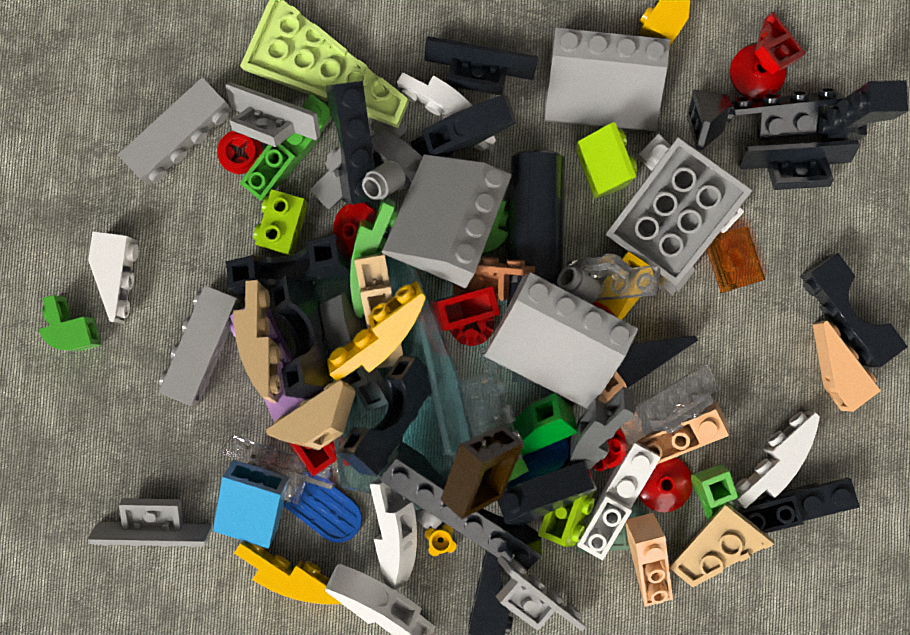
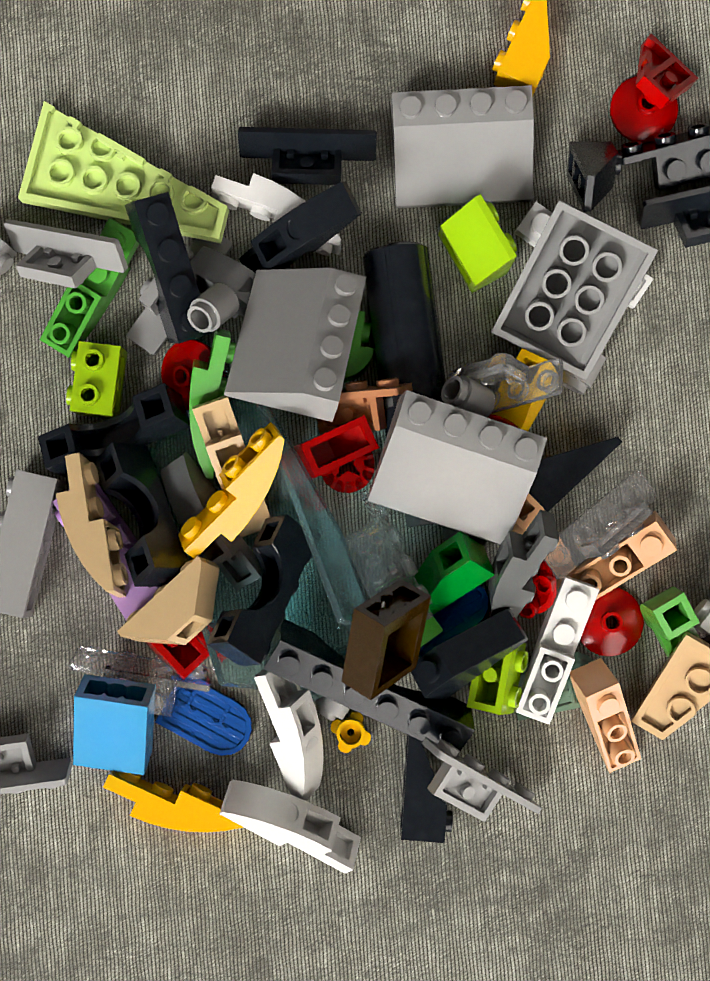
camera: 10 degrees left, 0 degrees up
(227, 155) = (19, 308): red gear -> none
(734, 260) = (651, 339): clear orange slope -> none

